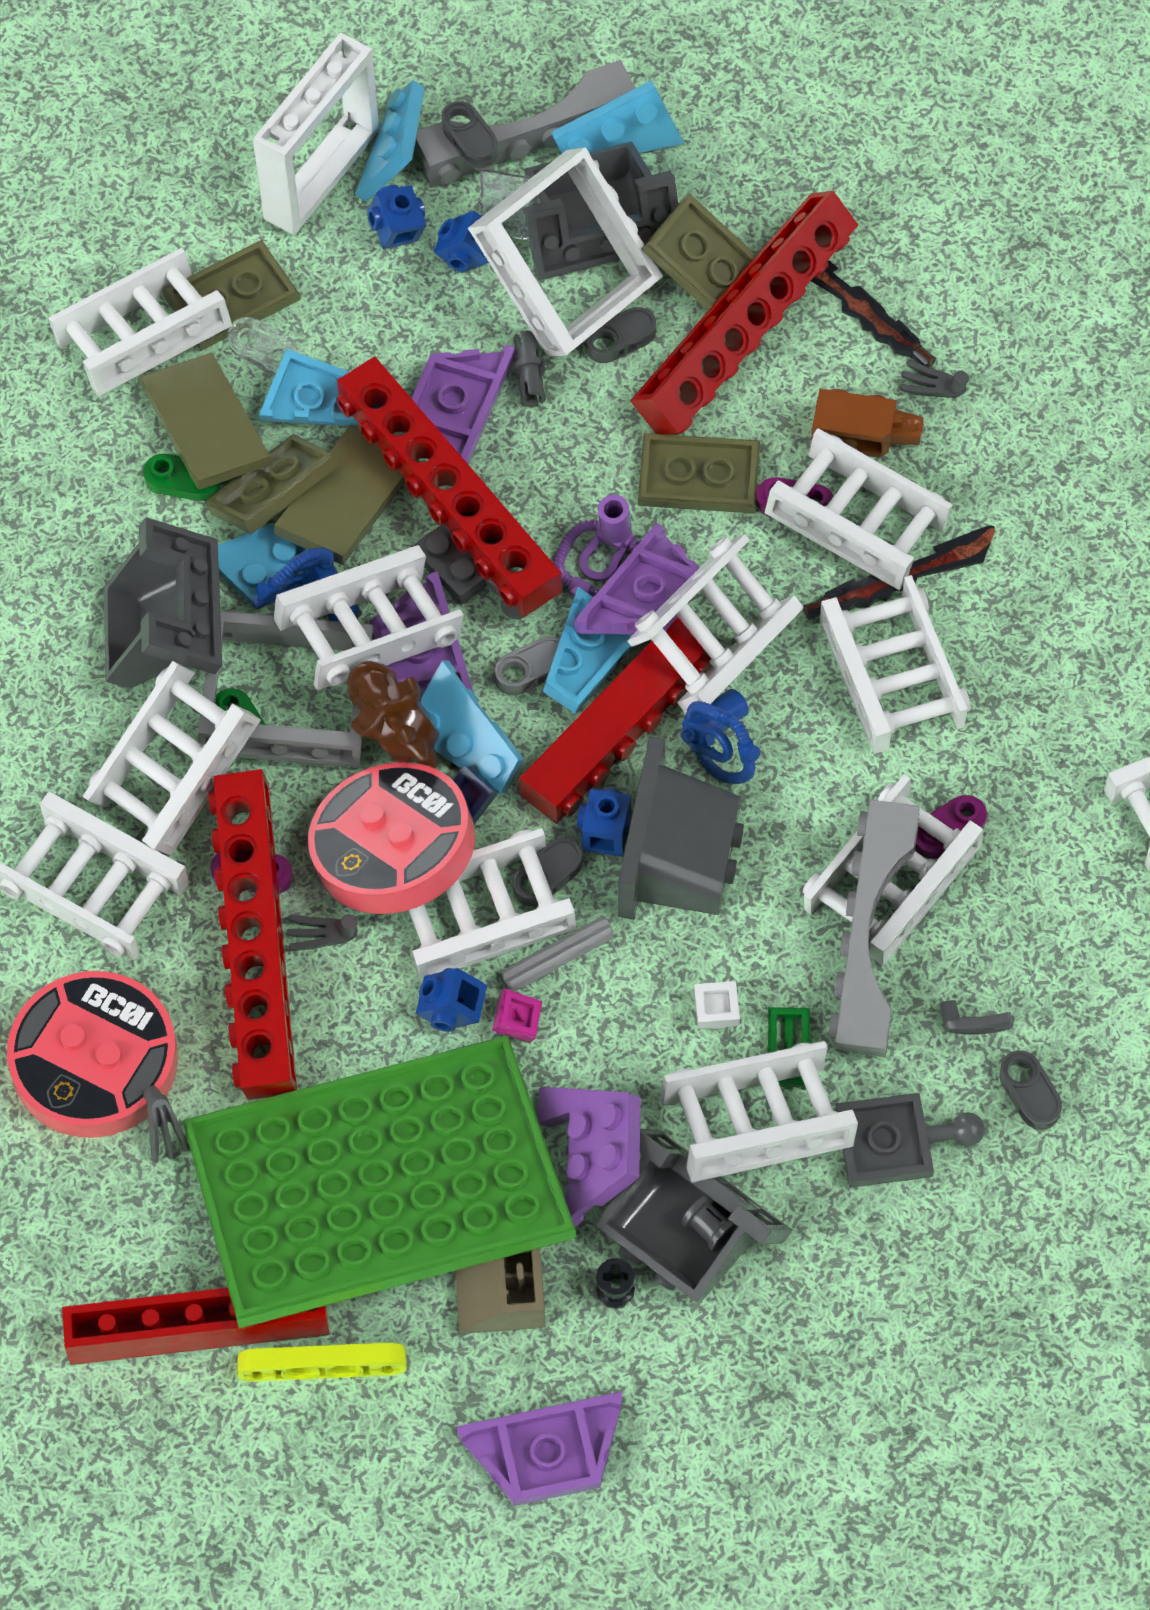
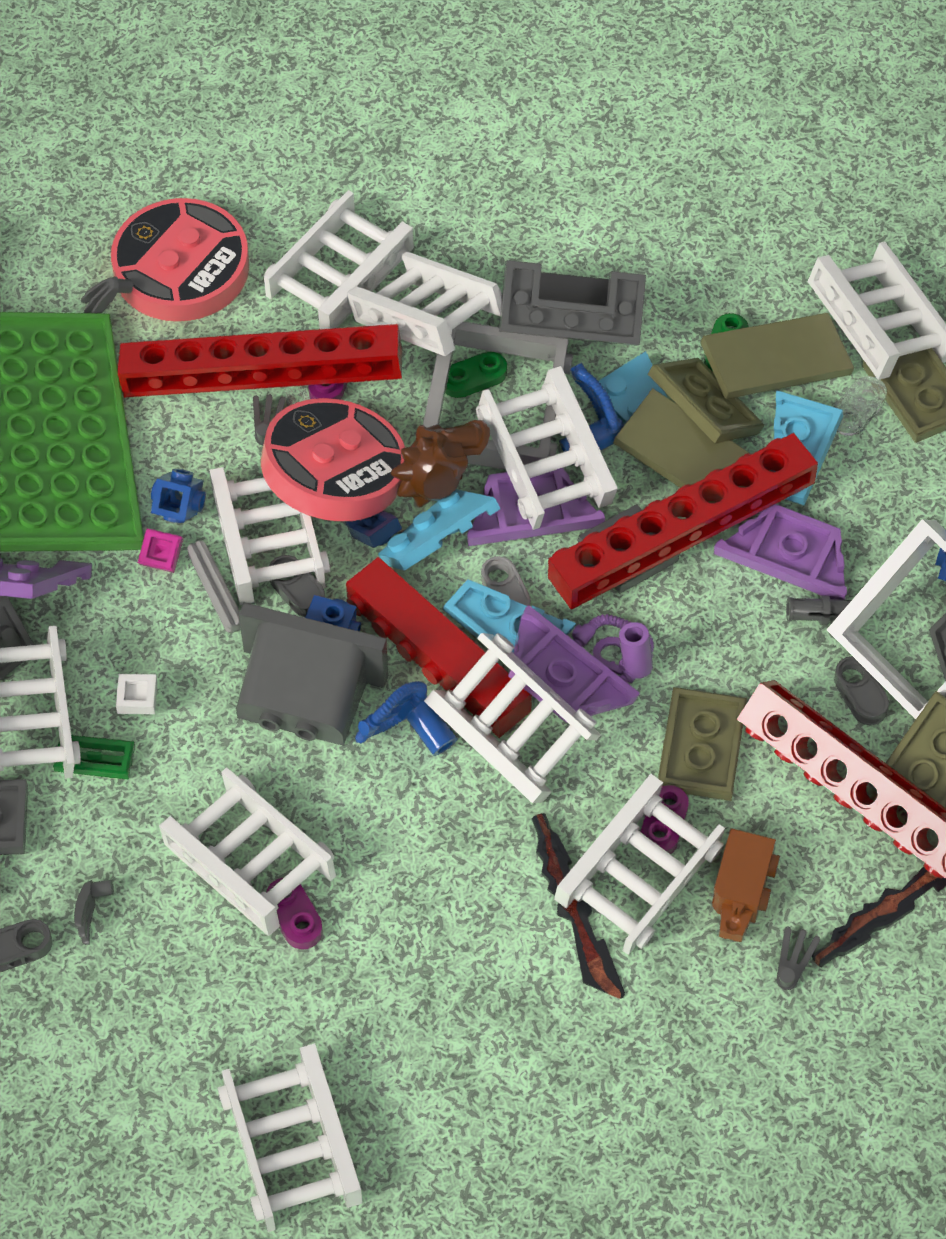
camera: 95 degrees right, 5 degrees down
(867, 691) = (478, 844): white fence -> none
(888, 844) = (111, 808): light grey arch -> none

